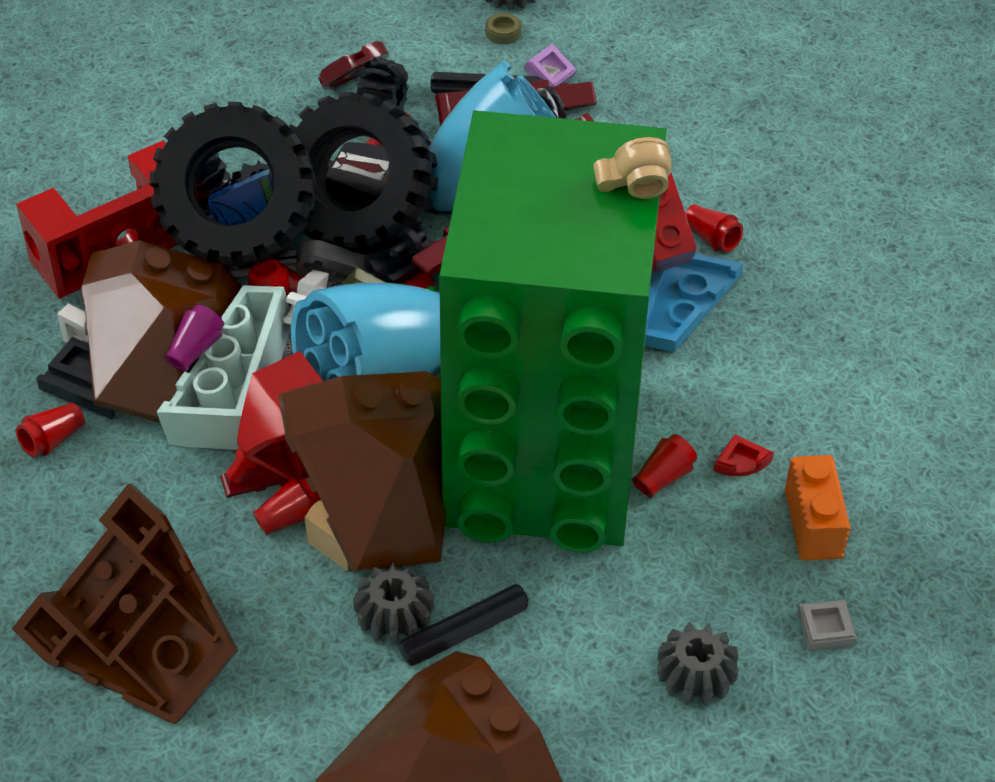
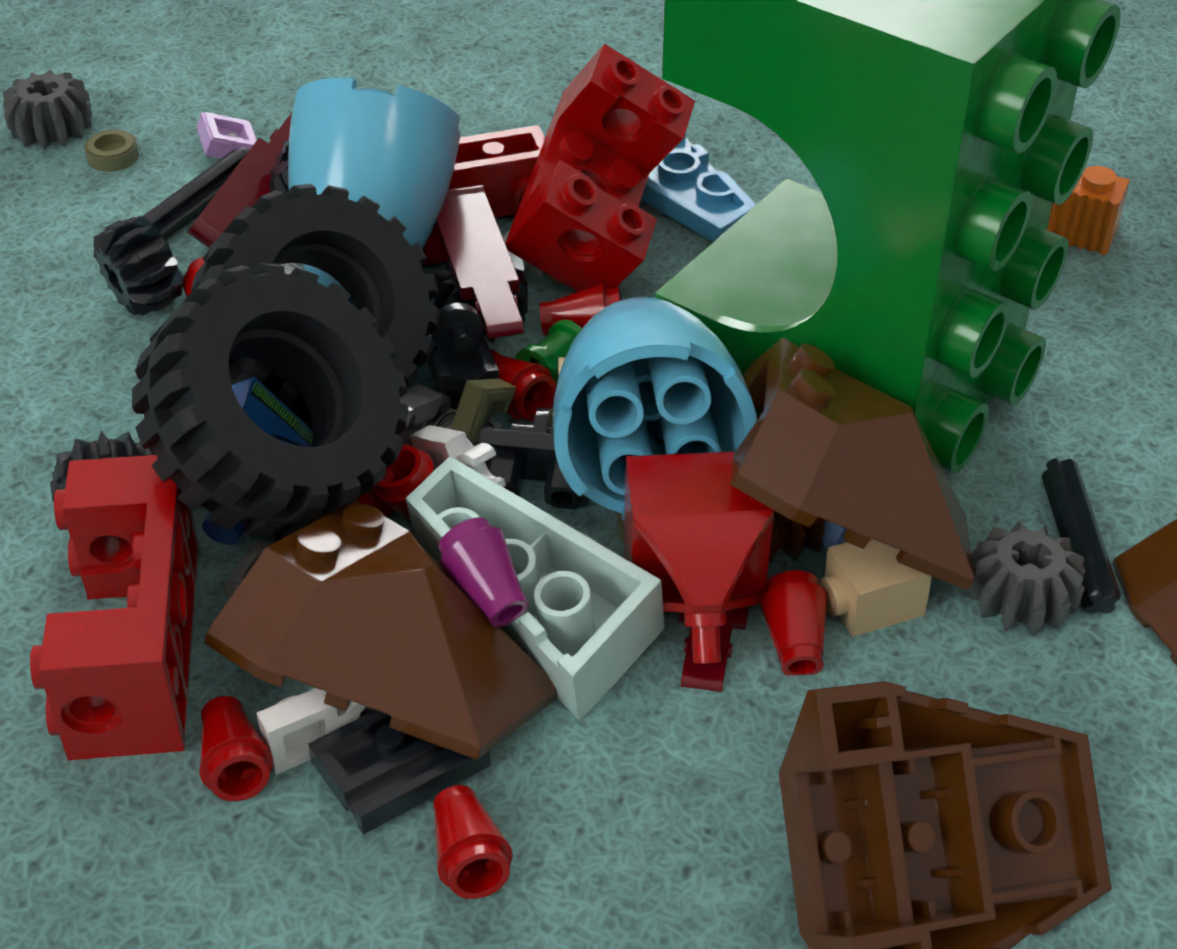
camera: 60 degrees left, 5 degrees down
(44, 312) = (233, 754): none -> red cone
(350, 66) = (65, 271): dark red piece -> none

